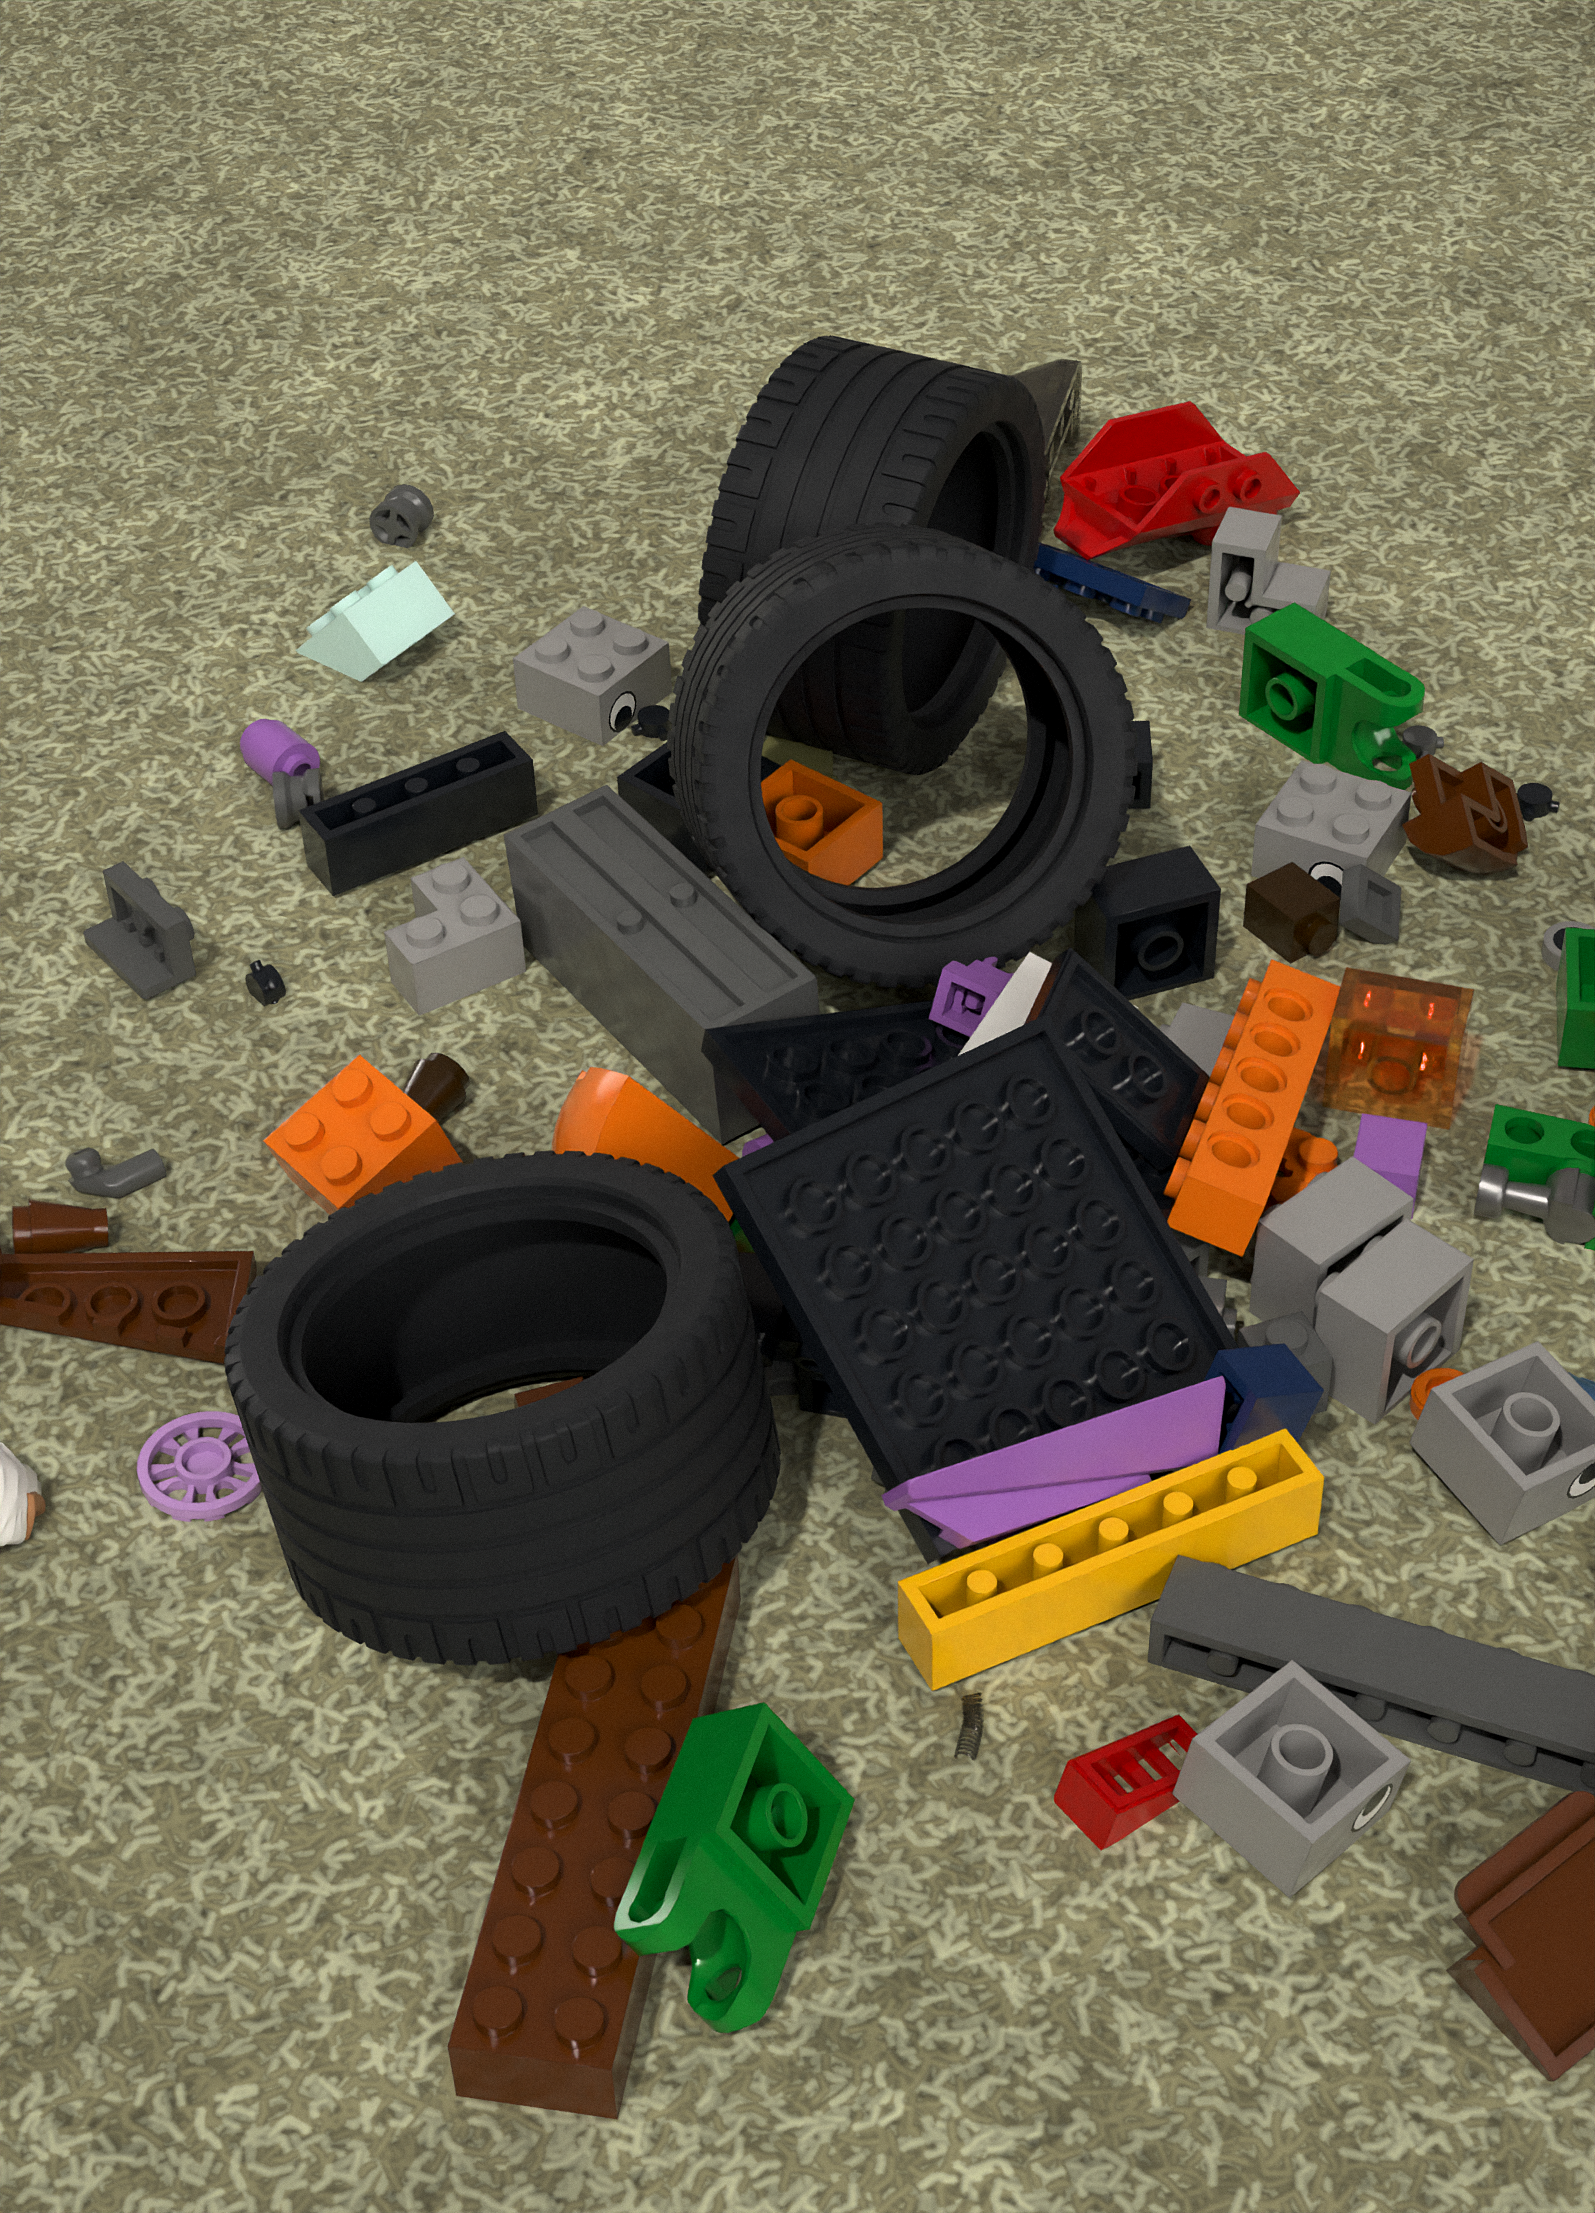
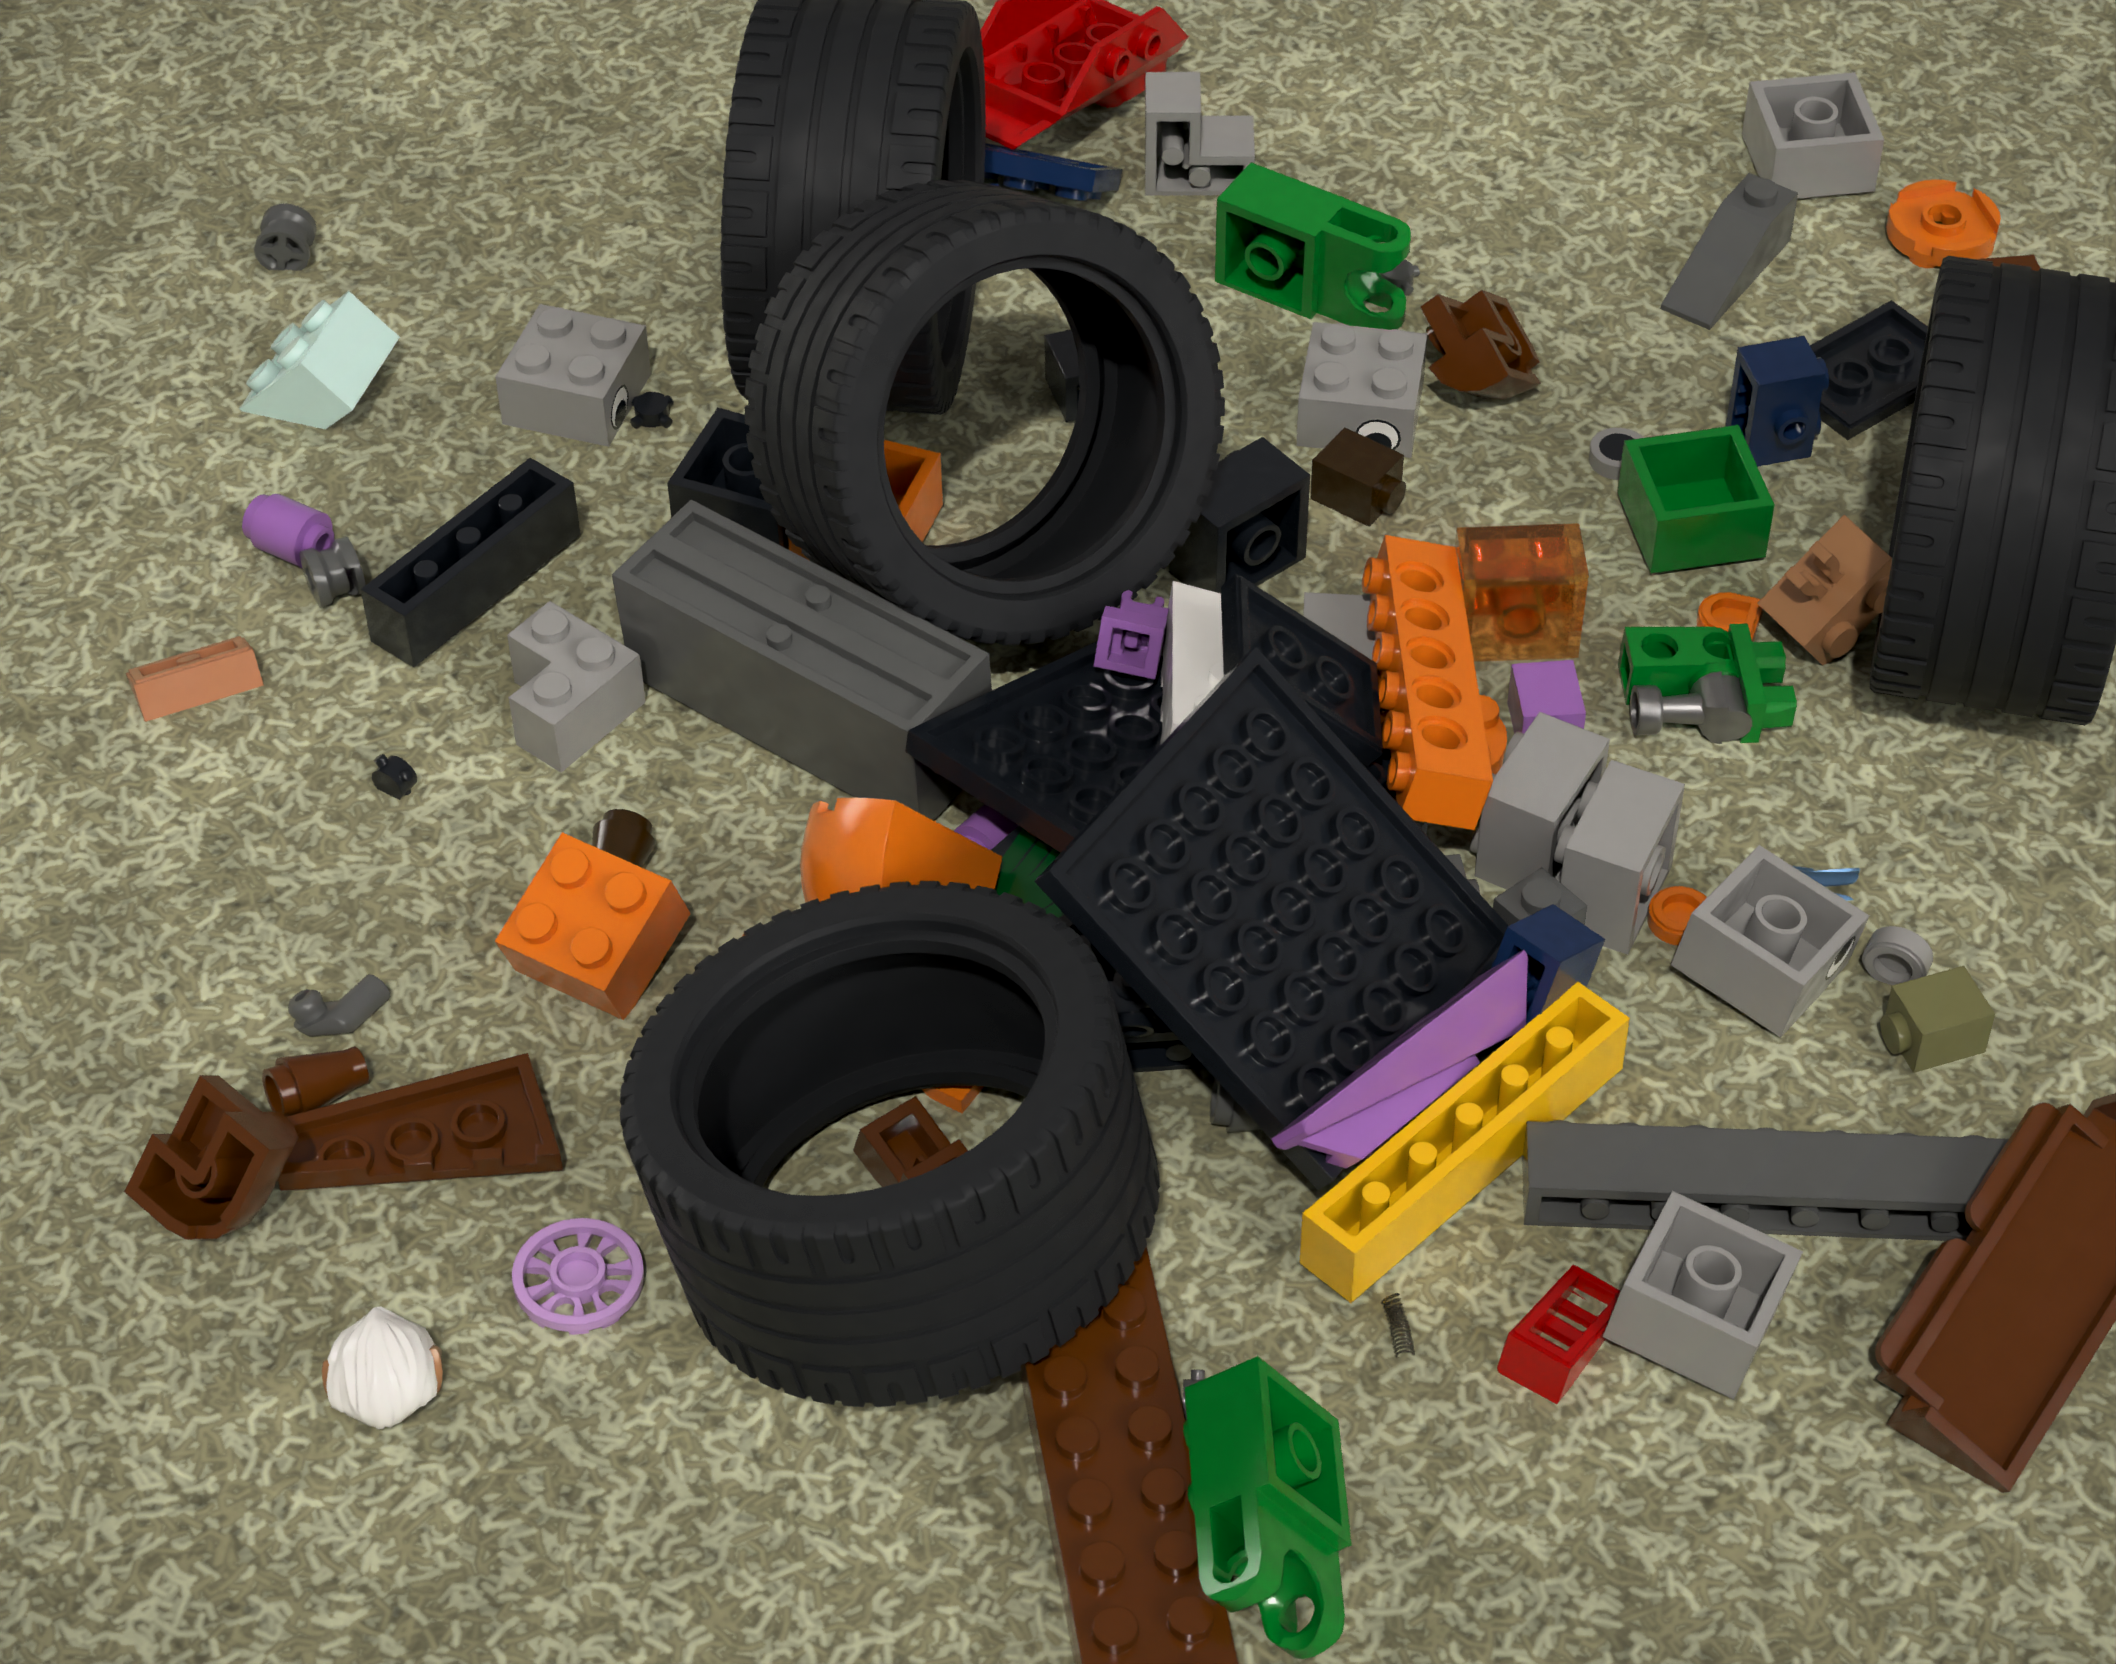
camera: 20 degrees left, 5 degrees up
(145, 936) = (247, 754): dark grey bracket -> none
(162, 861) = (194, 678): none -> nougat slope
(1370, 905) = (1427, 454): dark grey plate -> none
(1536, 801) = (1529, 311): black piece -> none

